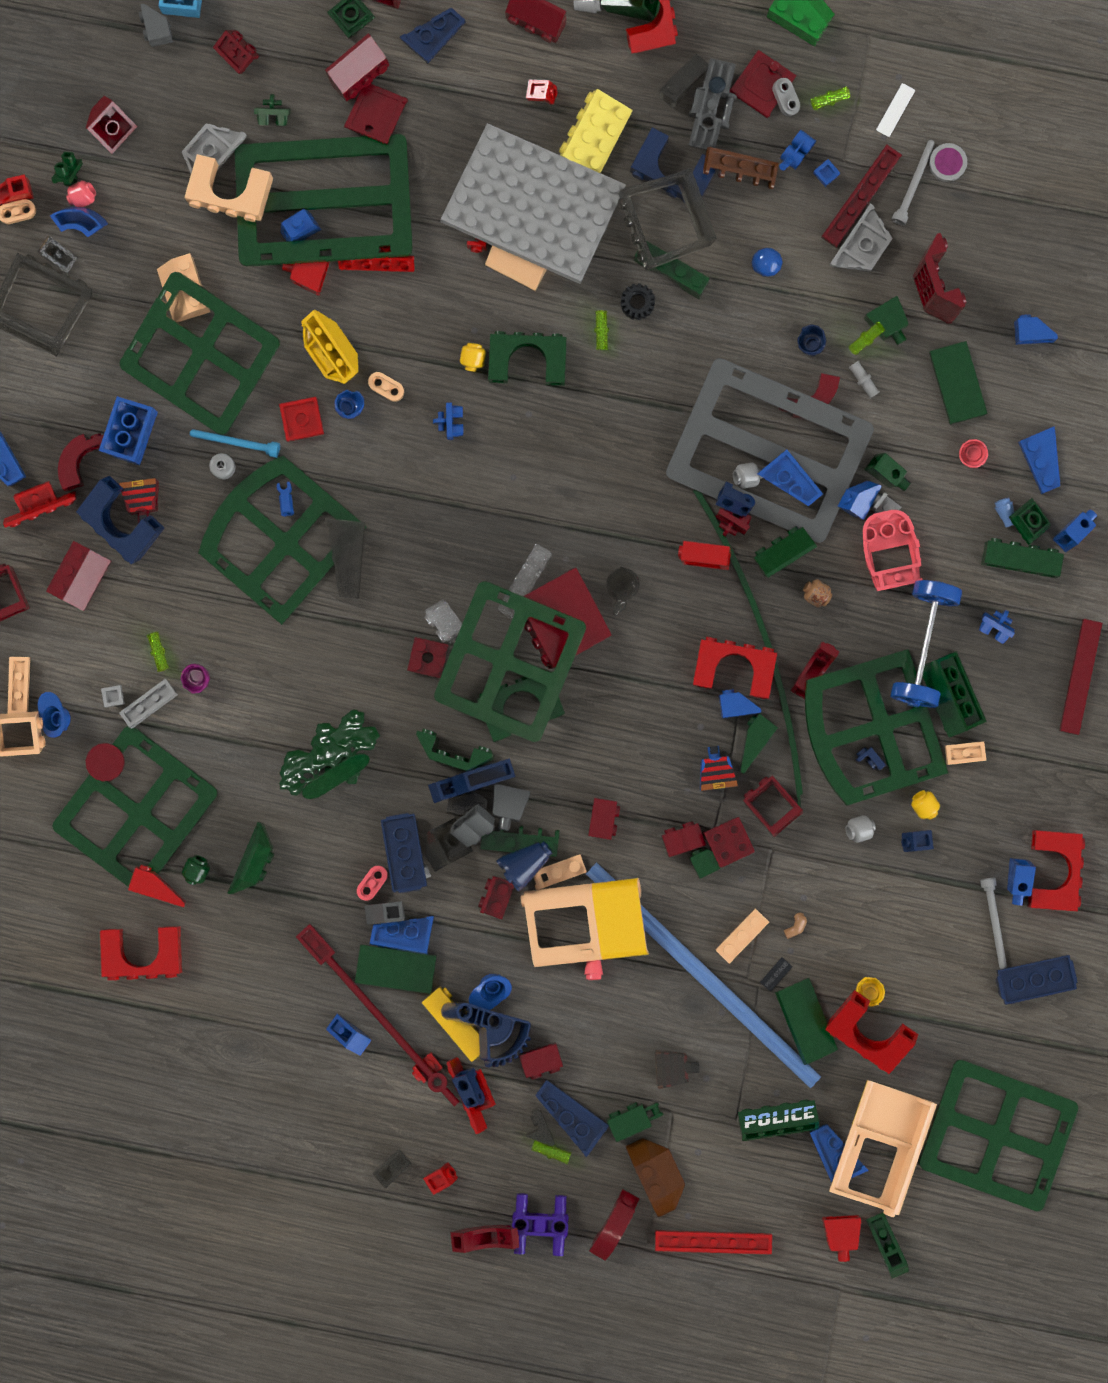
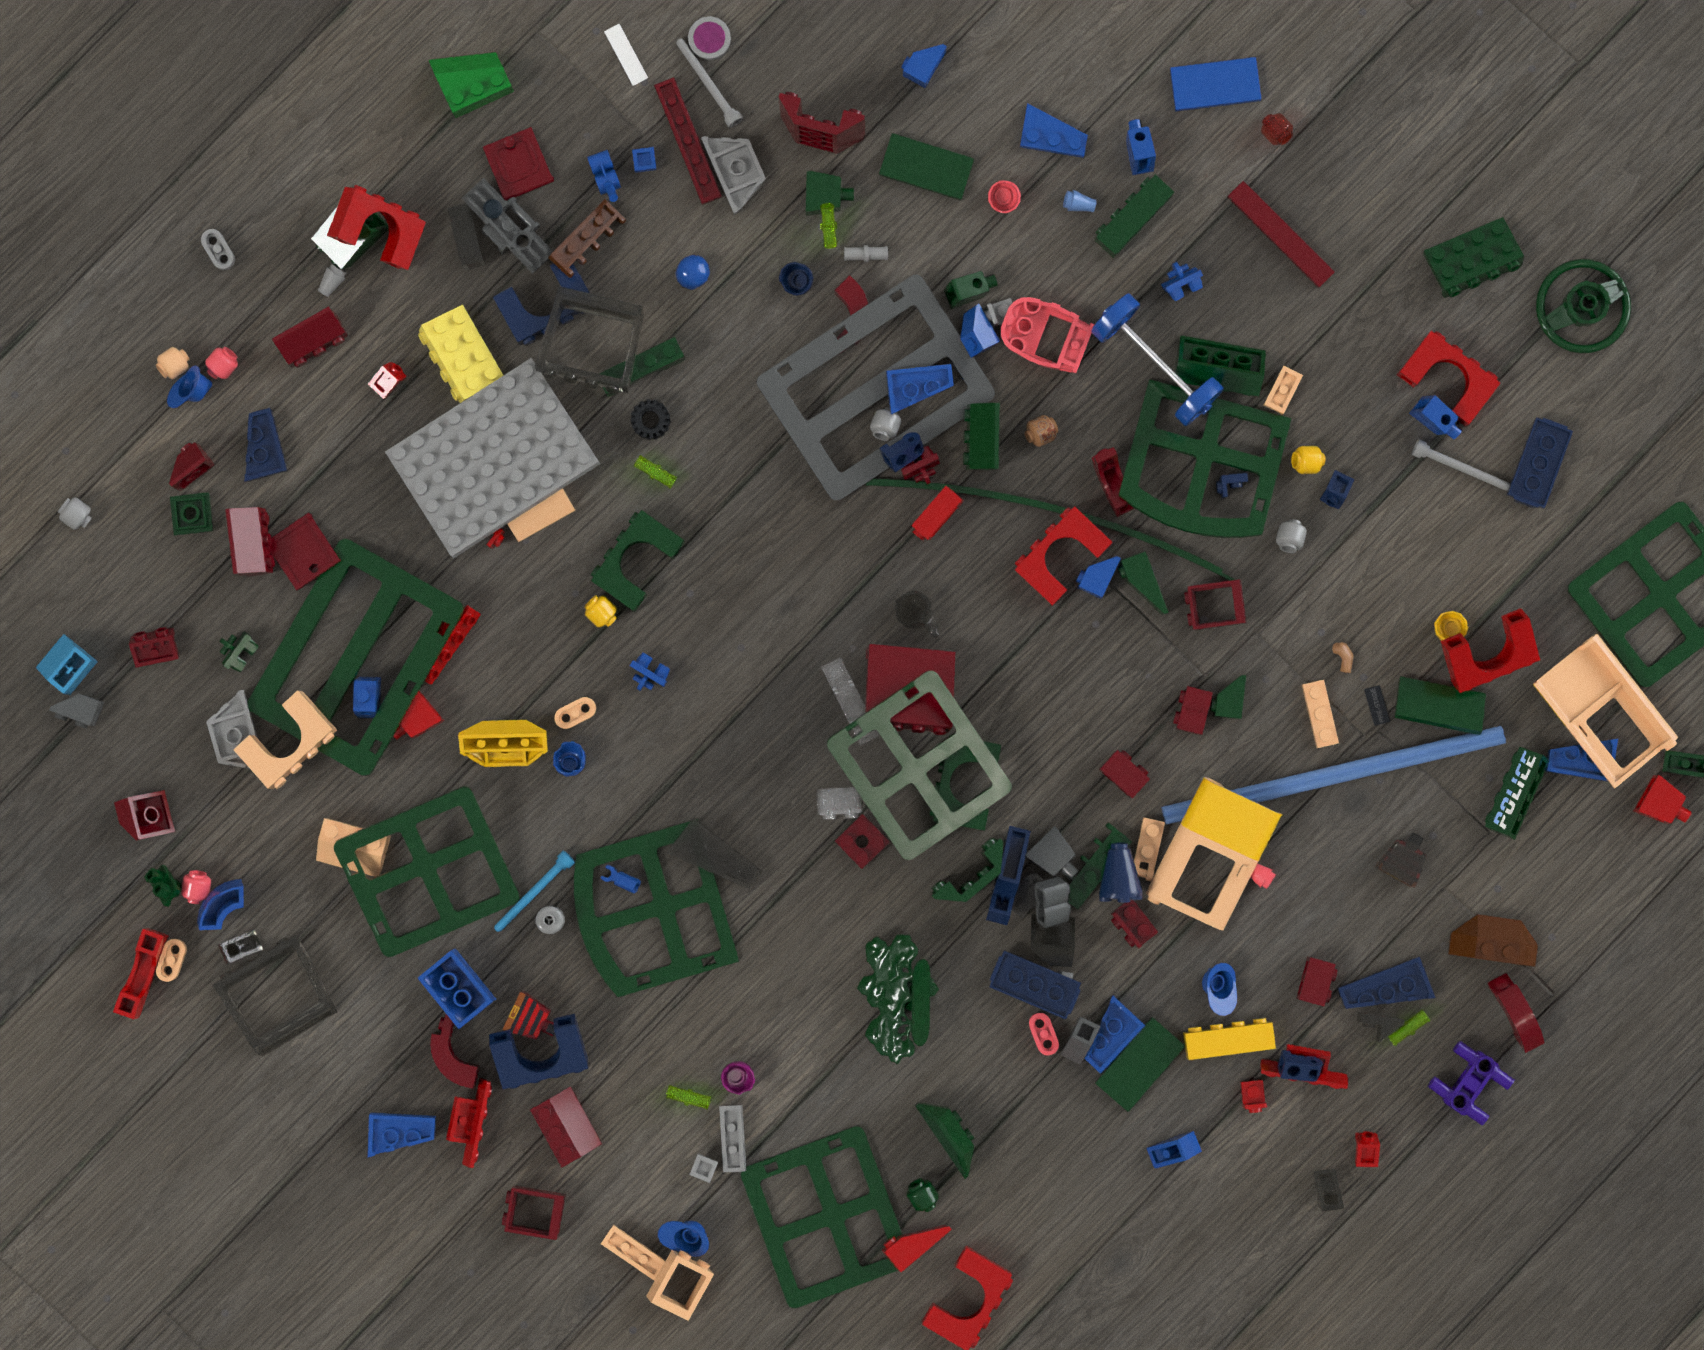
camera: 55 degrees left, 0 degrees up
(105, 762) = (762, 1216): dark red tile -> none
(301, 419) = (553, 814): red tile -> none
(323, 952) = (1079, 1123): dark red bar -> none
(484, 1237) = (1449, 1143): dark red arch -> none
(489, 1034) = (1261, 1014): dark blue arm -> none
(632, 1120) = (1428, 931): dark green brick -> none
(713, 1242) = (1592, 929): red plate -> none
(716, 771) = (1149, 636): torso -> none
(729, 842) = (1223, 668): dark red bracket -> none
(785, 96) = (546, 150): light grey plate -> none
(830, 98) = (574, 109): clear neon green pin -> none
(1022, 522) = (1098, 193): dark green piece -> none

